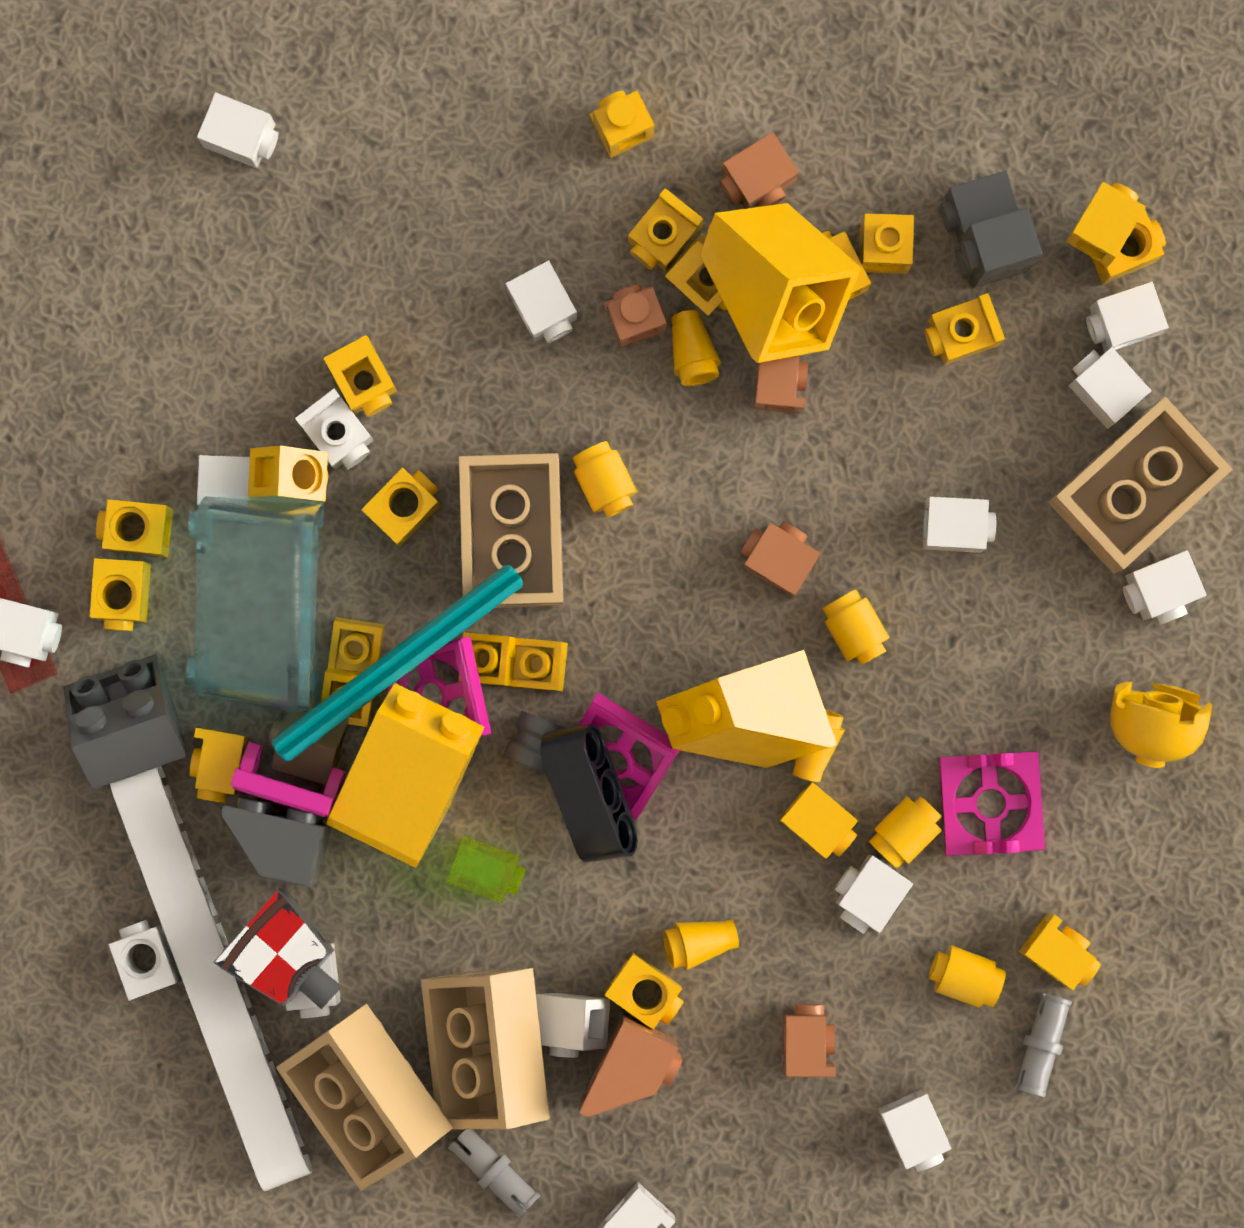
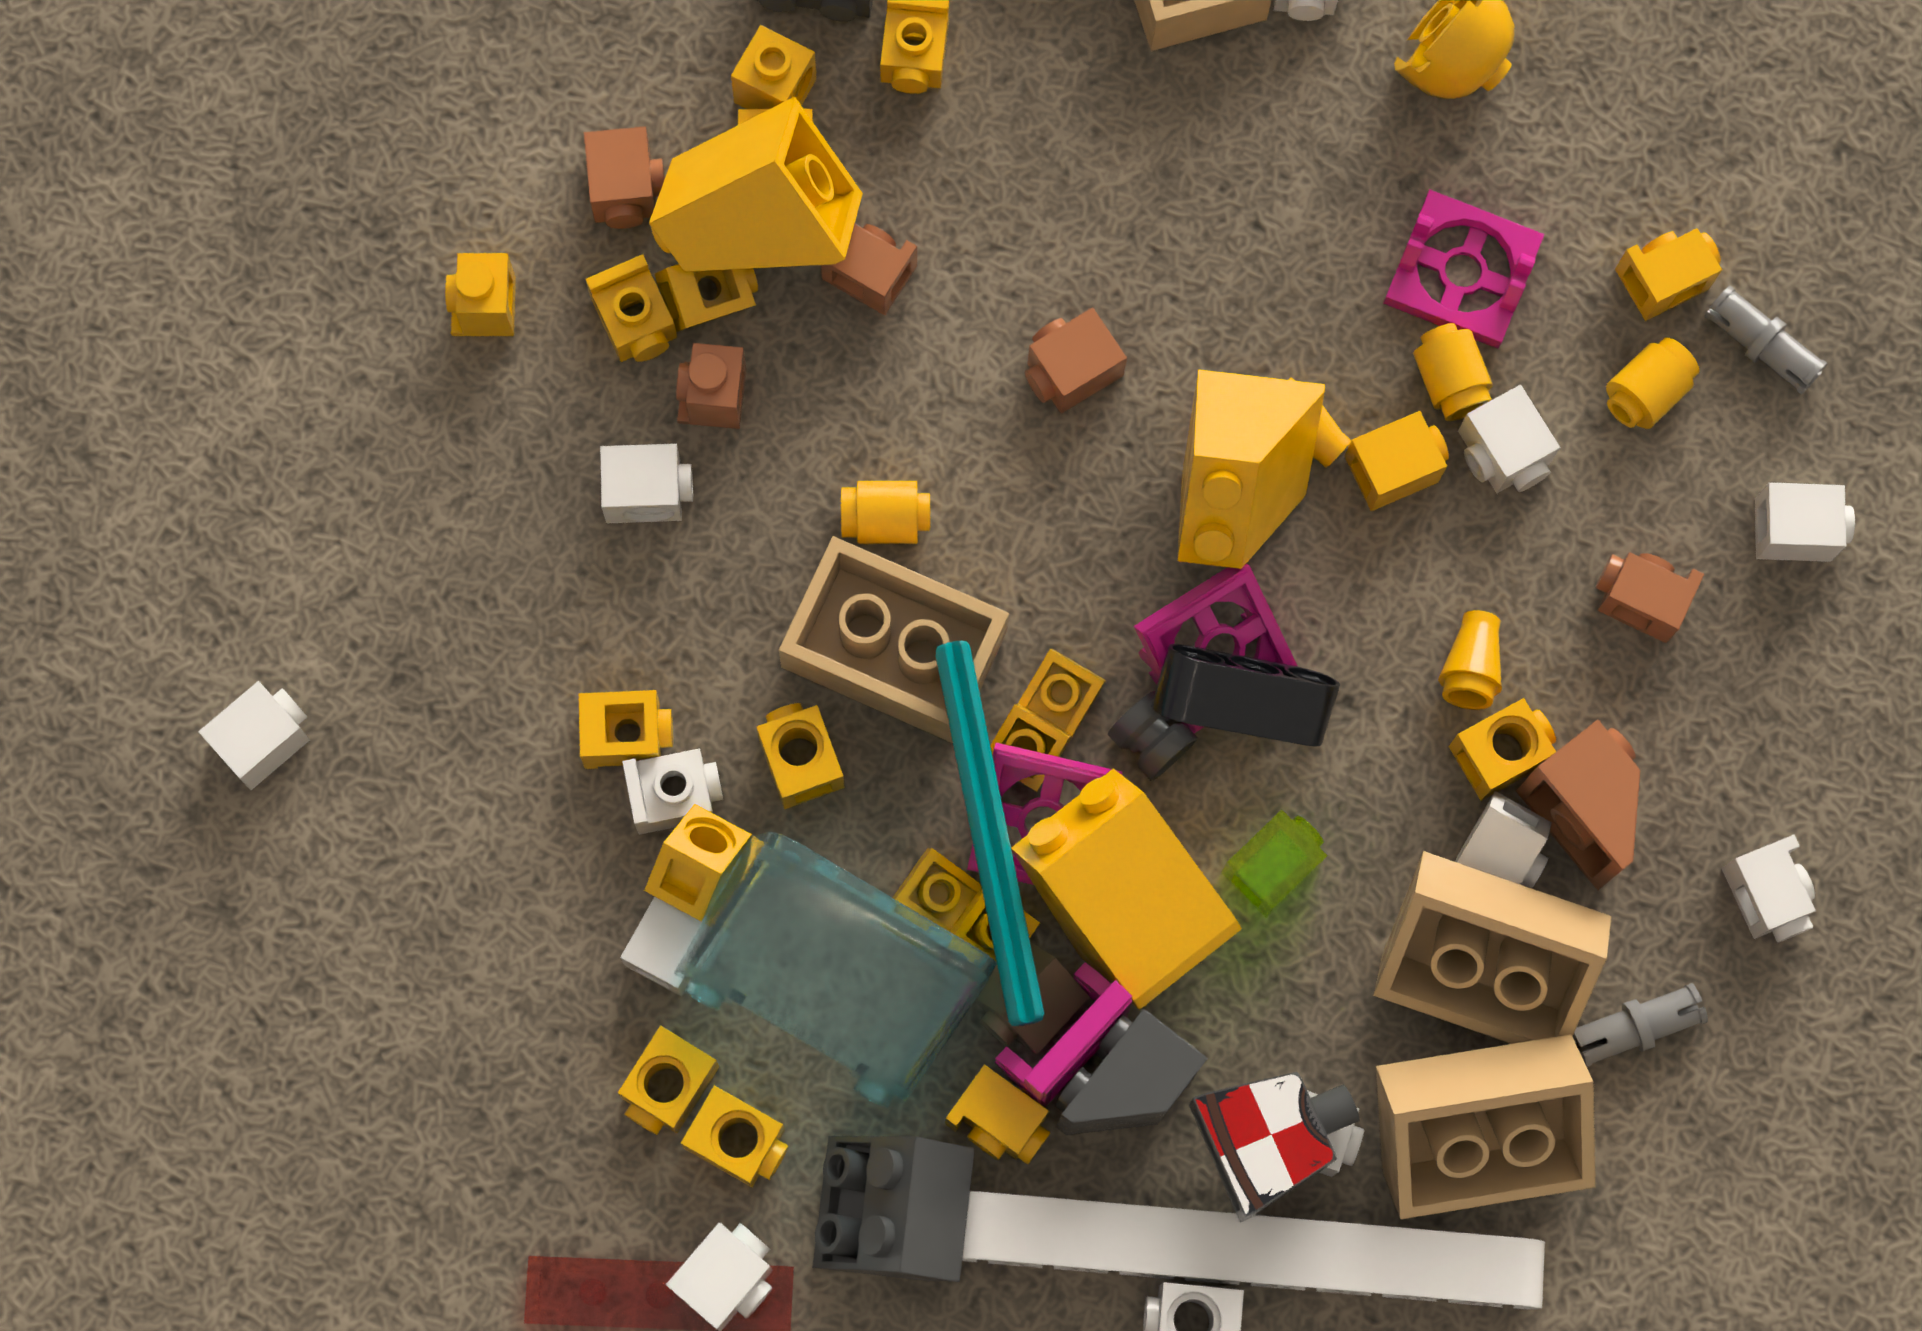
camera: 65 degrees left, 10 degrees down
(693, 350) = (785, 344): yellow cone -> none
(855, 627) = (1194, 316): yellow brick -> none
(958, 524) = (1130, 153): white brick -> none

